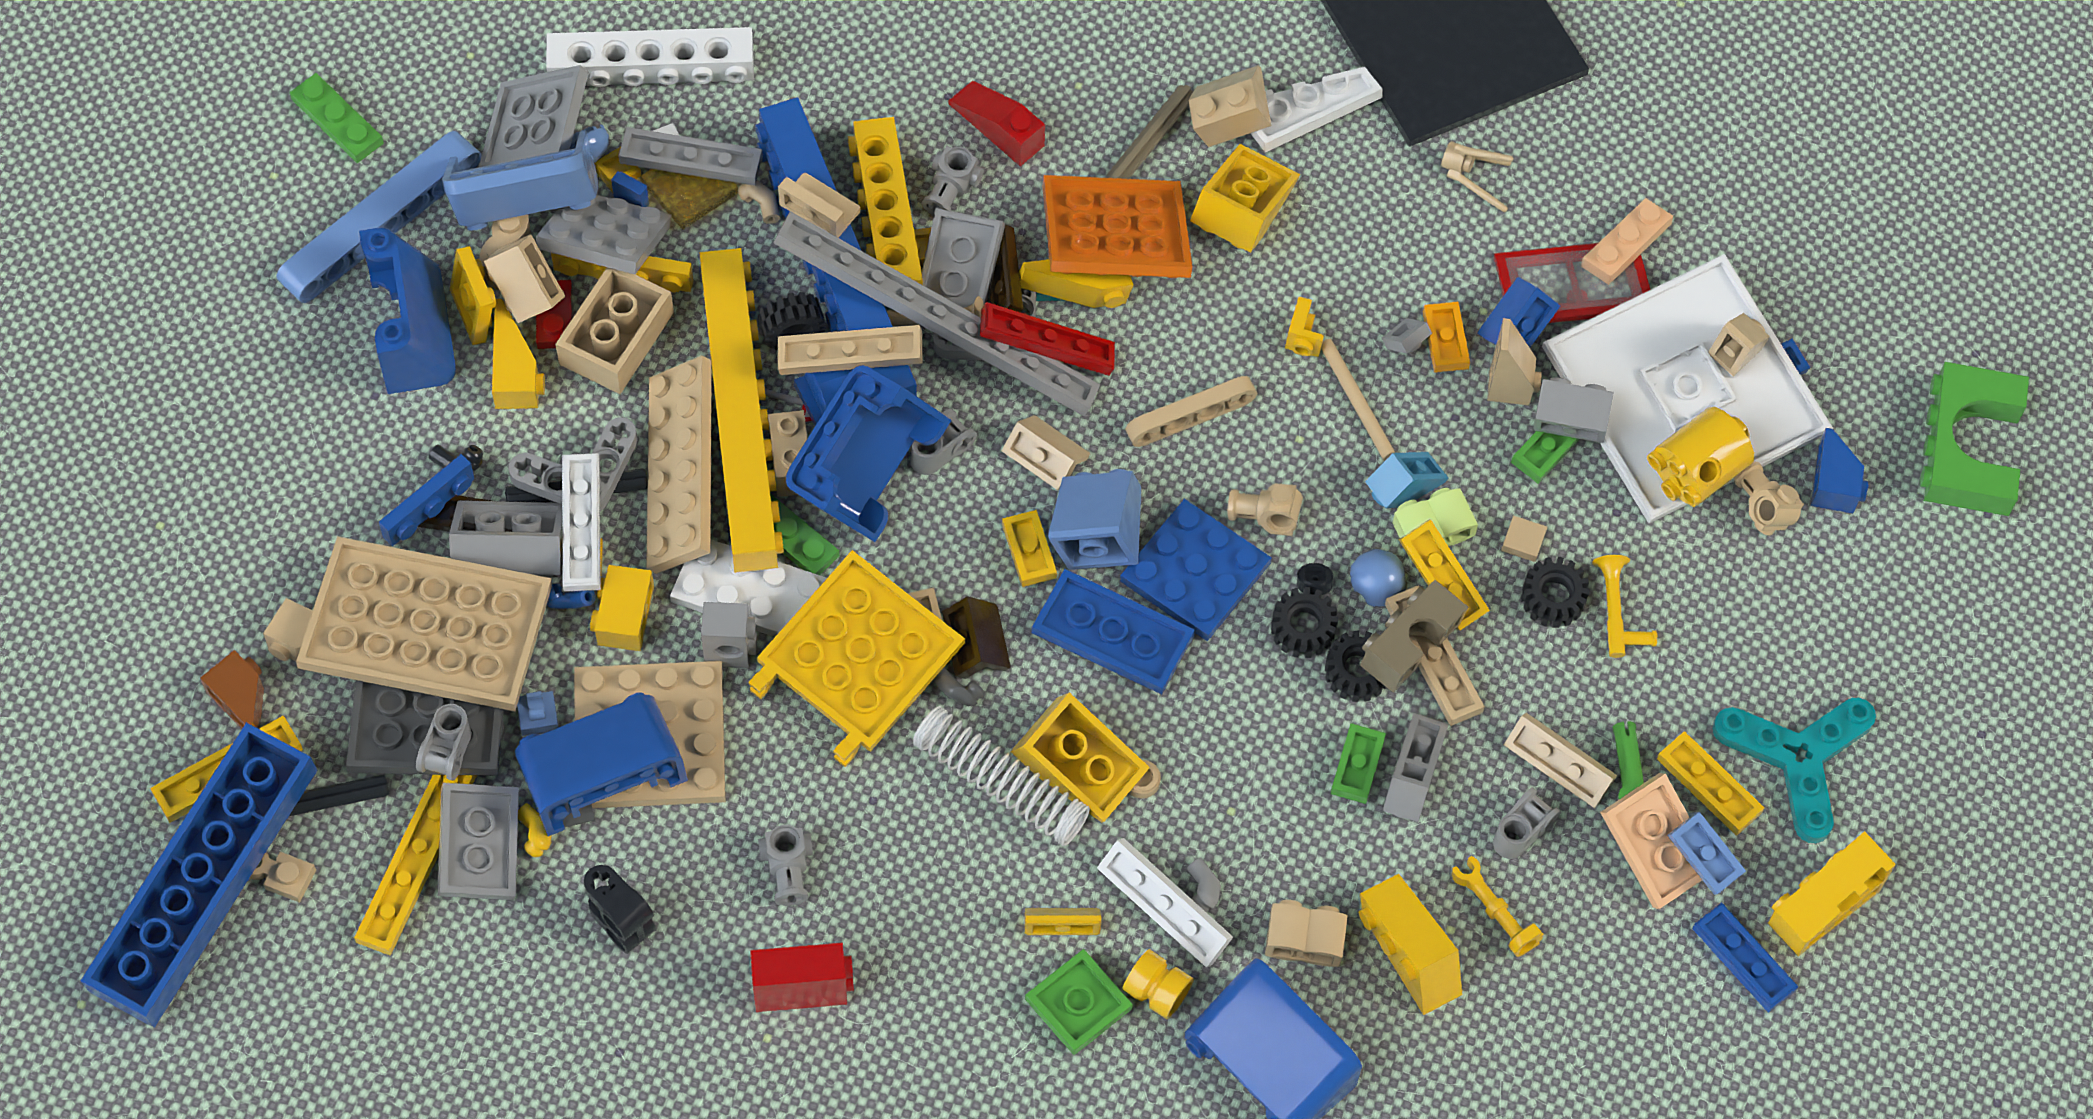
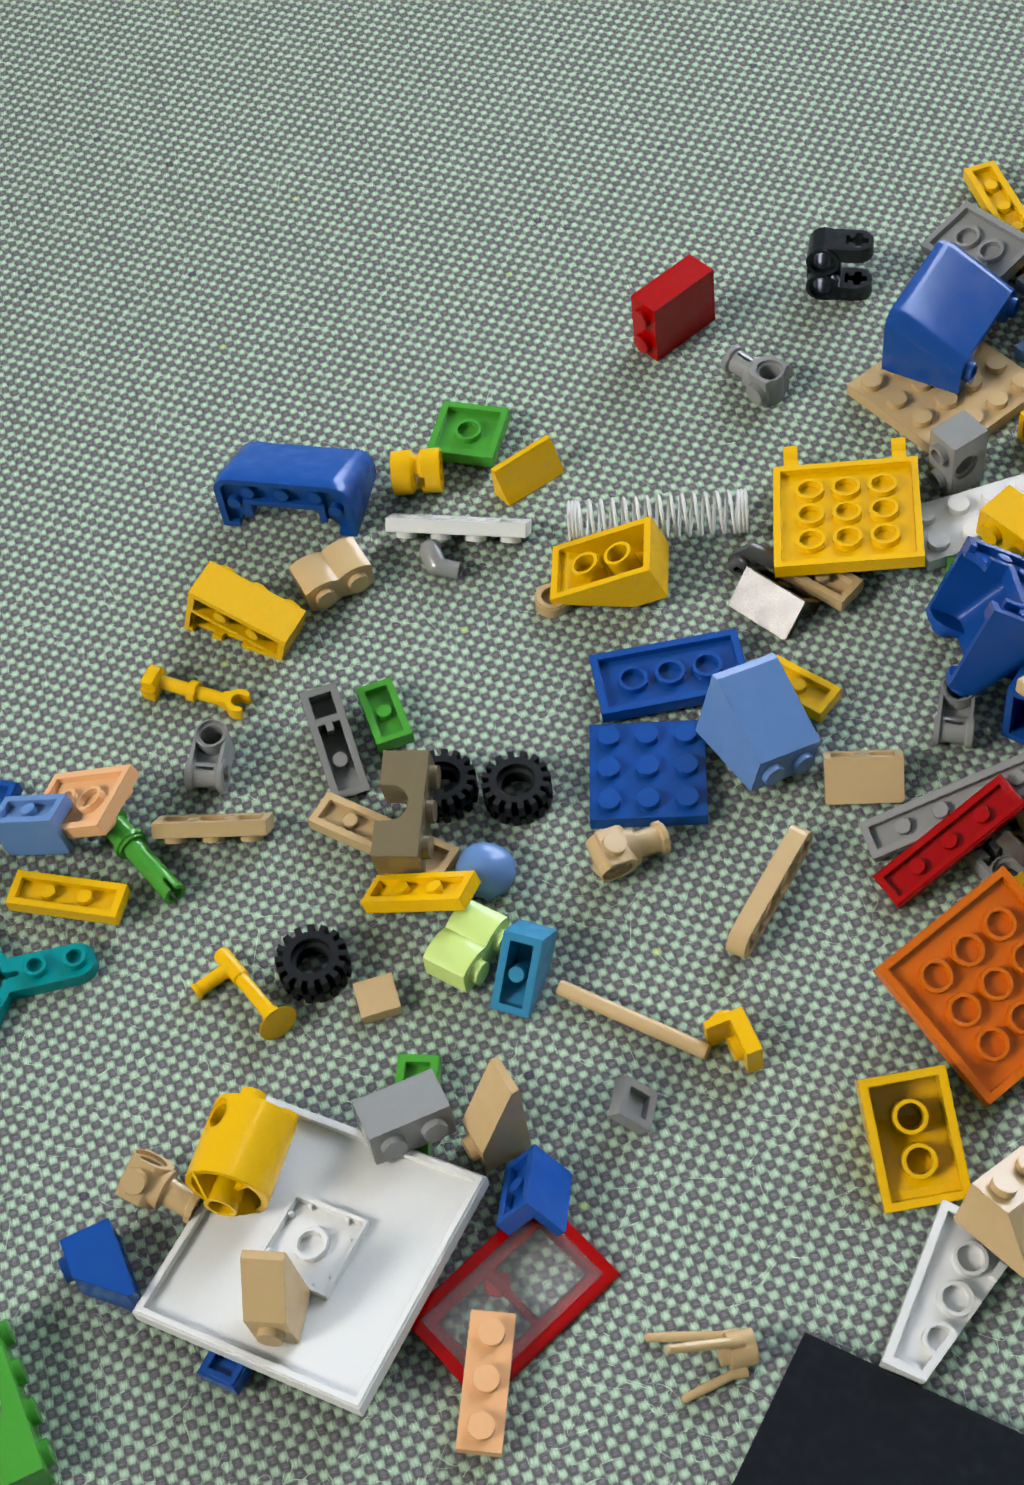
camera: 155 degrees right, 10 degrees down
(1316, 577) = (537, 829): black tile -> none
(1448, 339) = (595, 1135): light orange plate -> none

